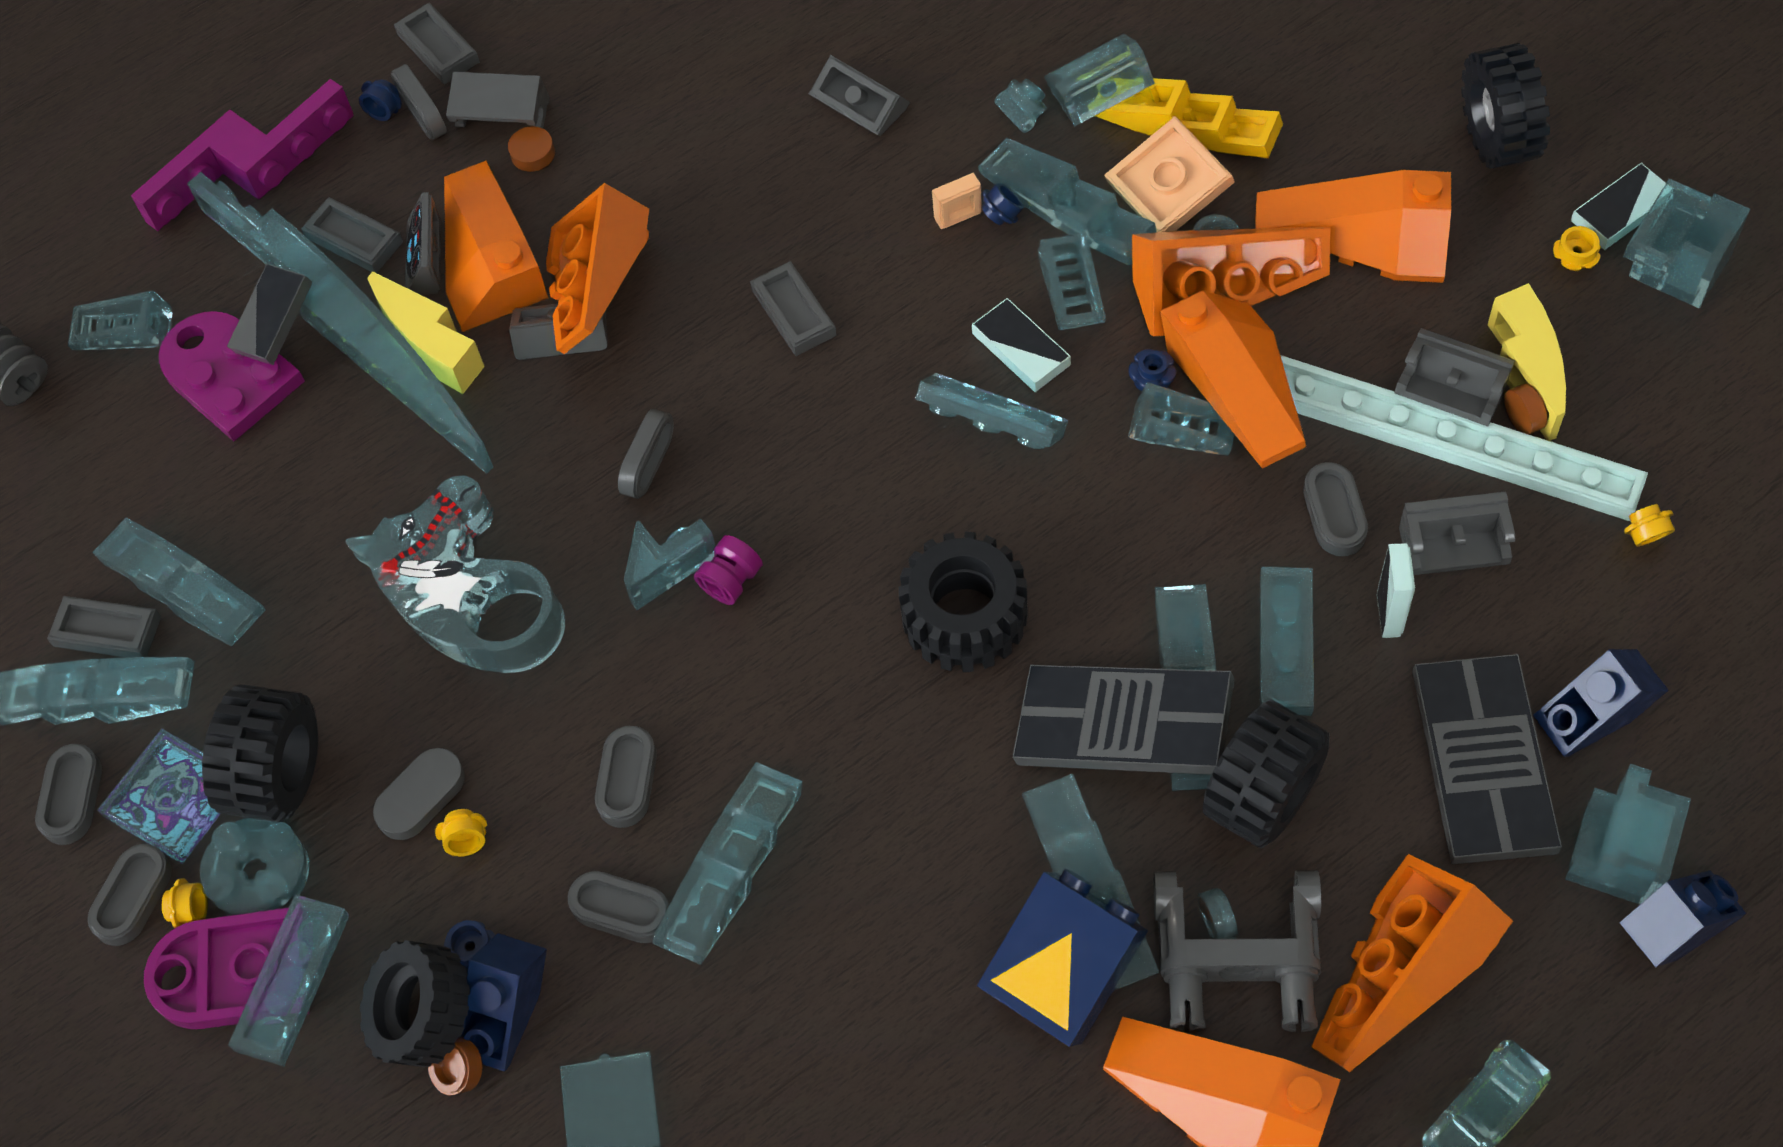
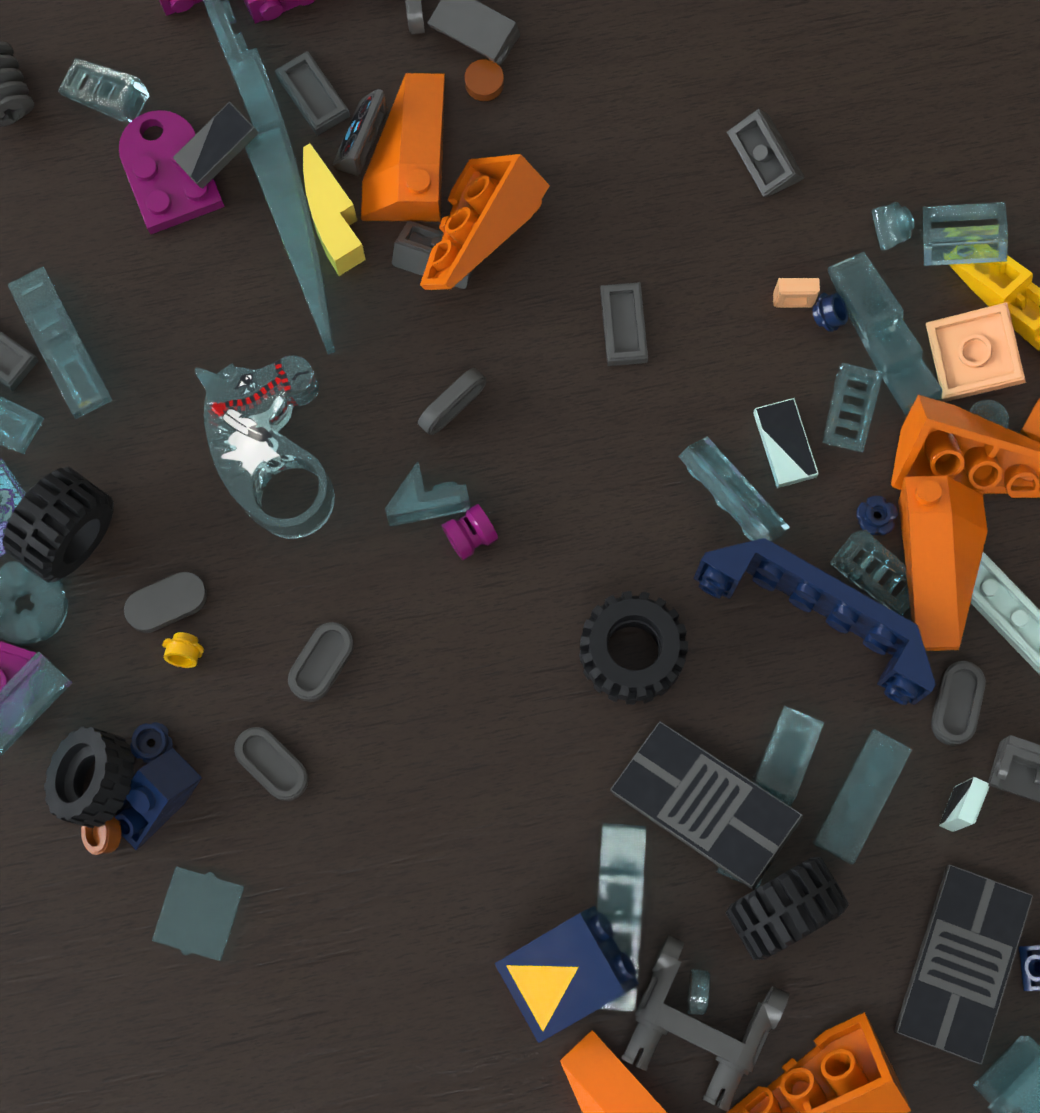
camera: 20 degrees right, 15 degrees up
(726, 863) = (362, 772): clear light blue slope -> none
(1145, 458) = (846, 609): none -> dark blue slope

